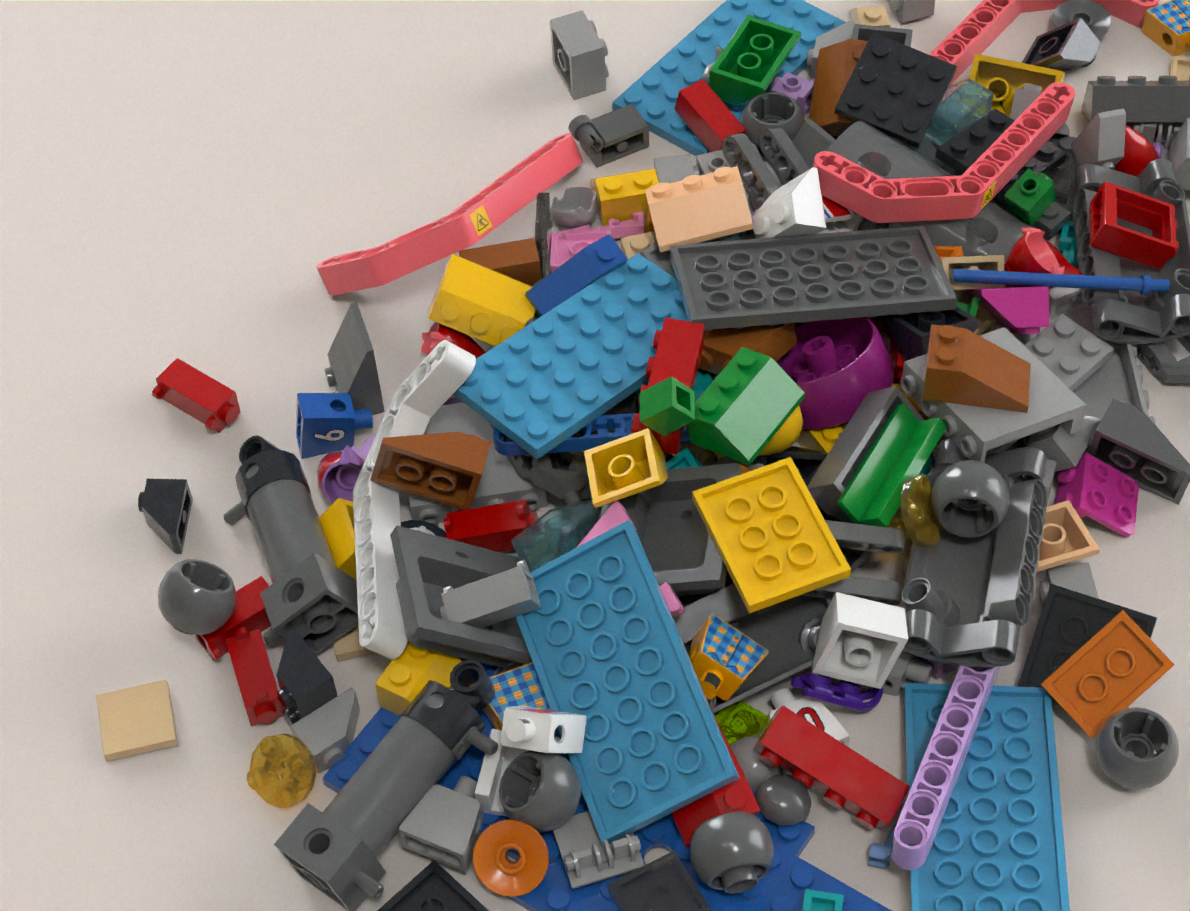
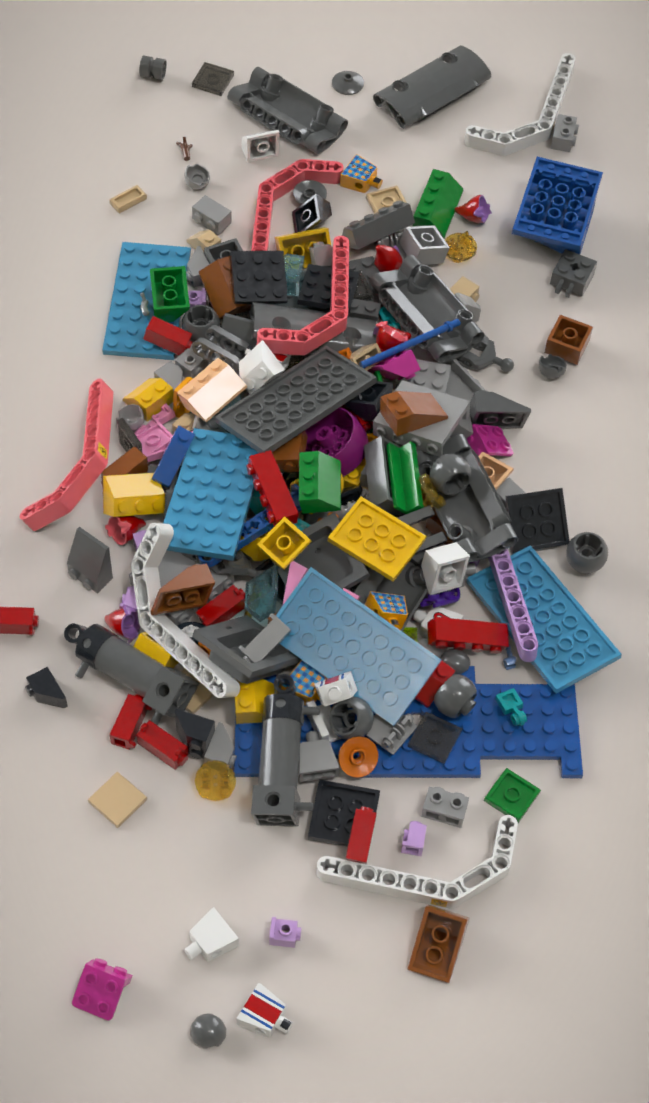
camera: 40 degrees left, 5 degrees up
(196, 597) = (114, 720): dark grey wheel -> none
(327, 423) = (94, 599): blue torso -> none
(579, 54) = (68, 331): light grey brick -> none
(611, 134) = (118, 368): dark grey hinge -> none
(667, 406) = (288, 501): green brick -> none
(1030, 196) = (361, 304): green brick -> none
(1102, 140) = (374, 259): light grey slope -> none
(1107, 673) = (554, 525): orange plate -> none
(1121, 203) = (406, 293): red window -> none

